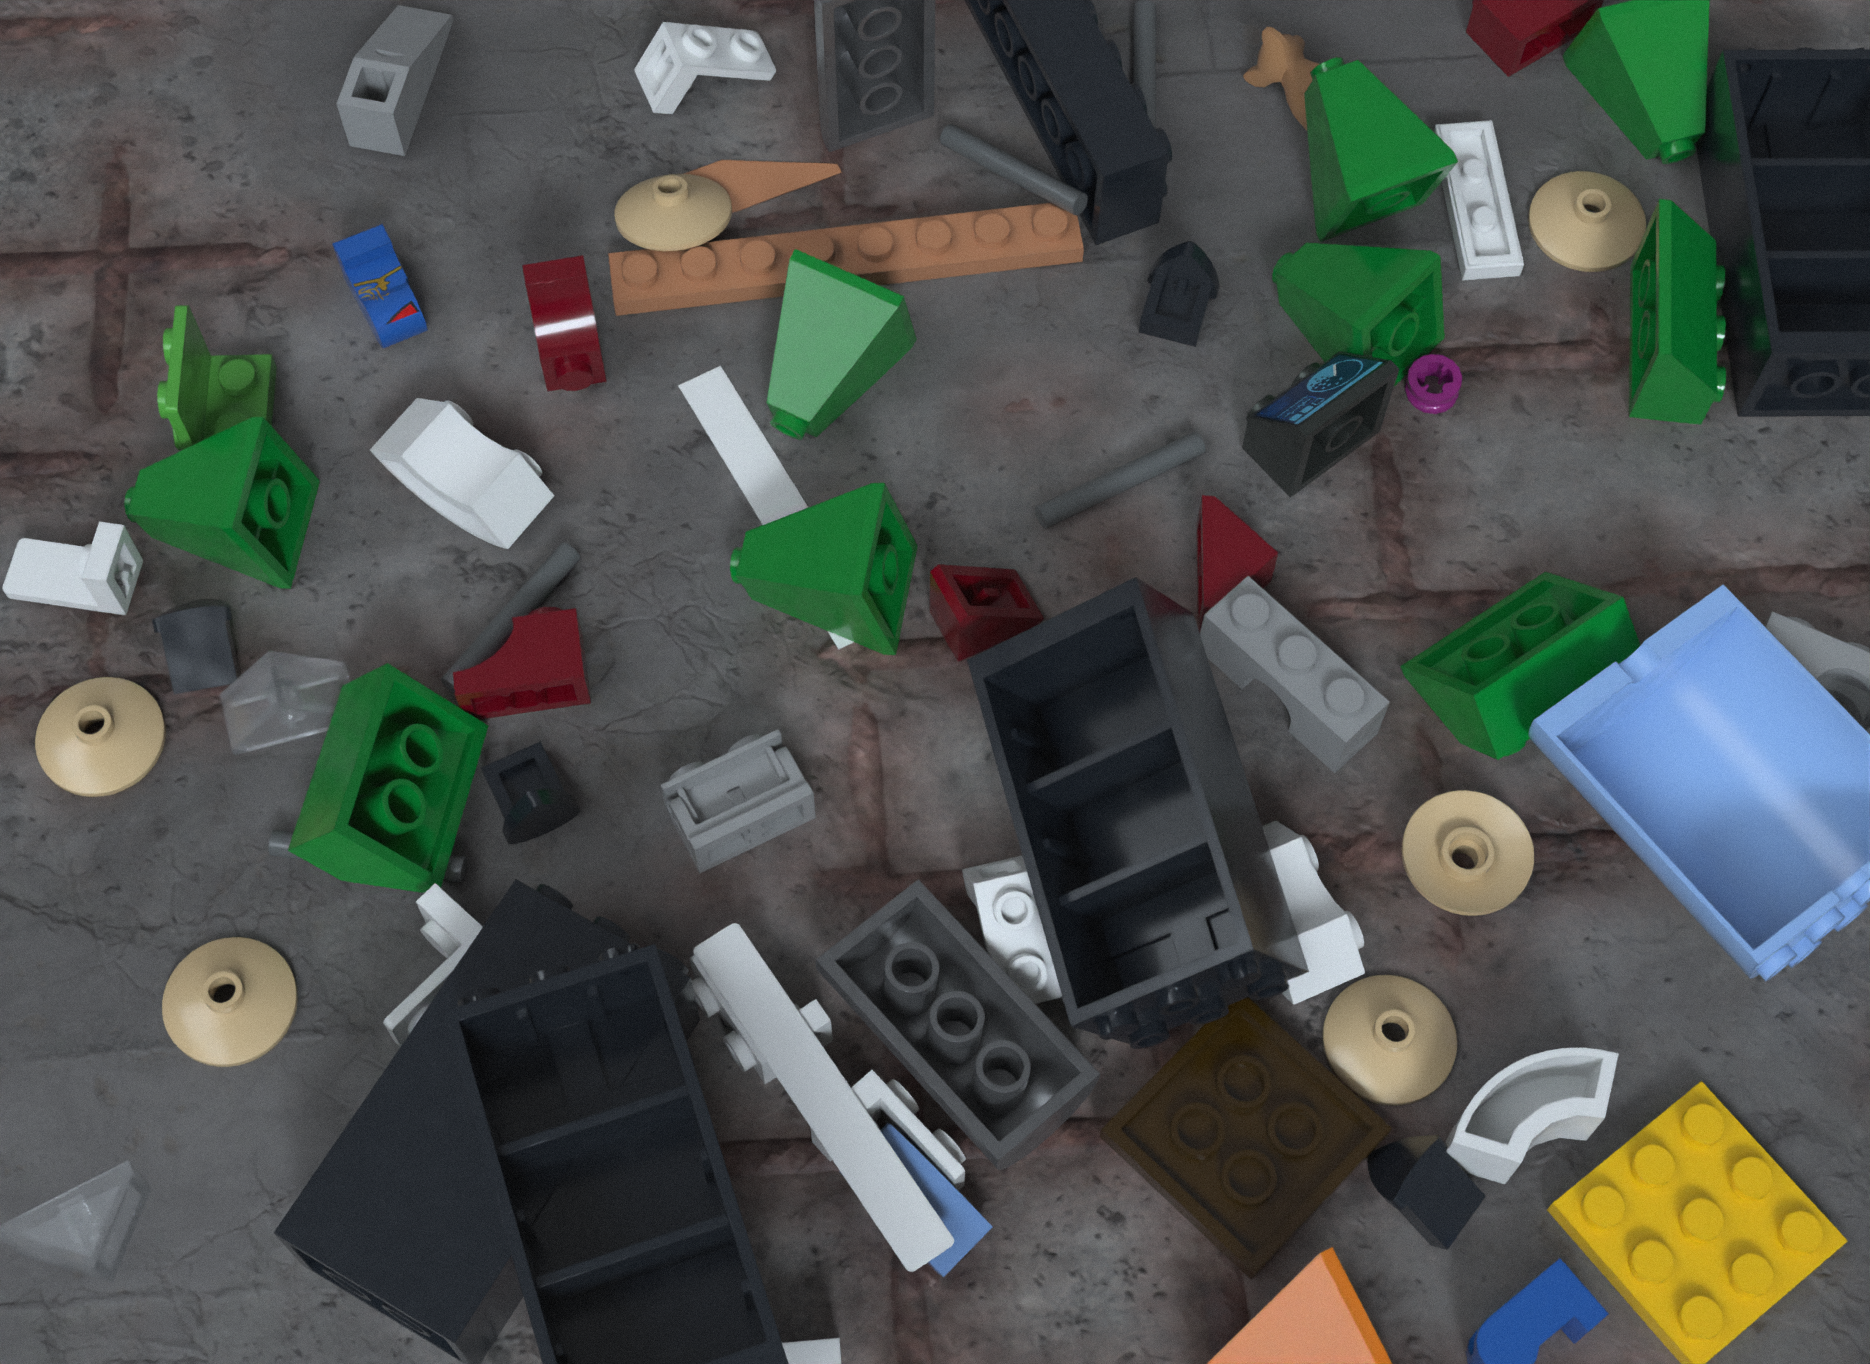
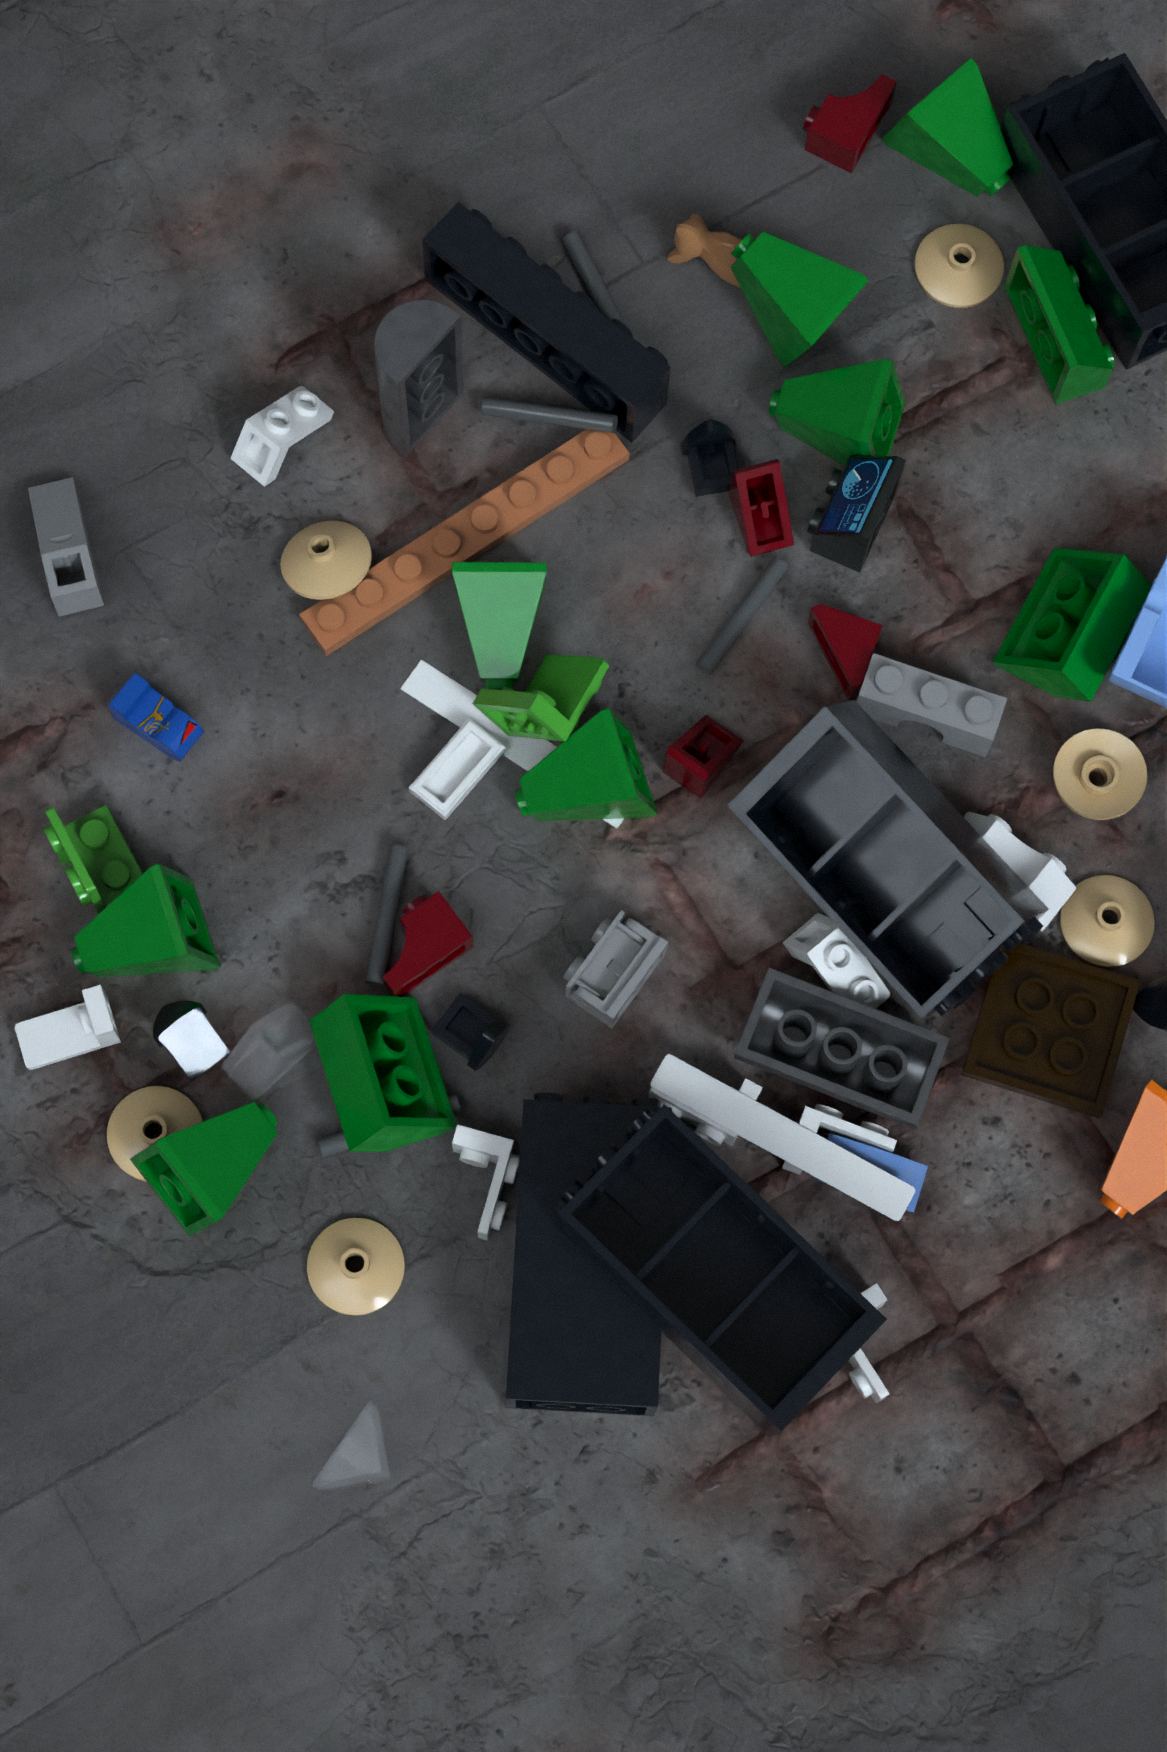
camera: 30 degrees left, 10 degrees up
(127, 783) = (207, 1164): none -> green slope
(463, 472) = (296, 827): white brick -> none
(564, 323) = (309, 688): dark red arch -> none
(688, 496) = (457, 769): none -> white tile
(760, 181) = (369, 503): nougat sticker -> none
(806, 468) = (551, 701): none -> bright green bracket
(1206, 366) = (761, 507): none -> dark red slope
(1433, 366) = (920, 429): magenta bush -> none
(1479, 203) = (886, 293): white tile -> none

